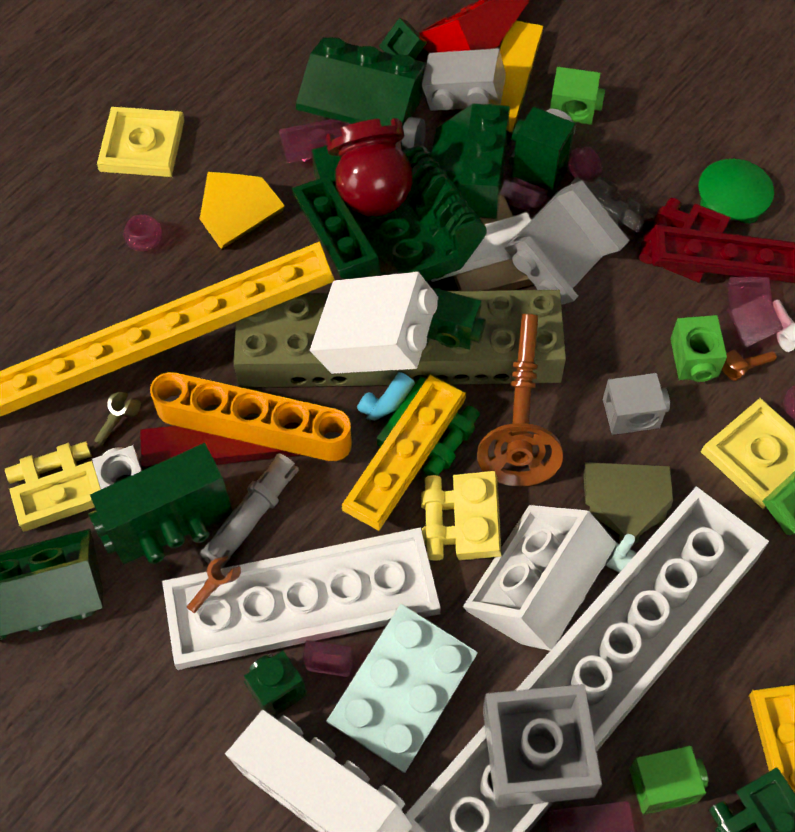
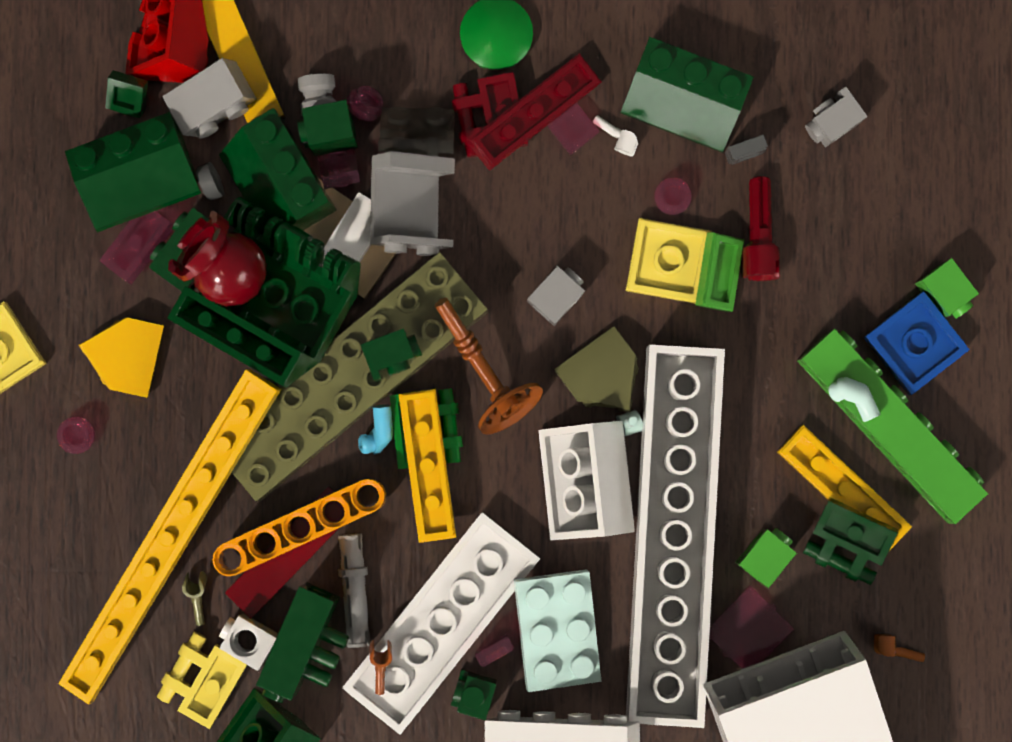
camera: 40 degrees left, 25 degrees up
(375, 323) = (343, 407): white brick -> none
(476, 516) = (510, 471): light yellow plate -> none
(541, 745) = (683, 619): light grey brick -> none
(577, 94) = (308, 38): bright green brick -> none
(700, 334) = (565, 196): bright green brick -> none
(737, 366) = (603, 201): dark orange hand -> none
(755, 319) = (592, 154): clear pink plate -> none

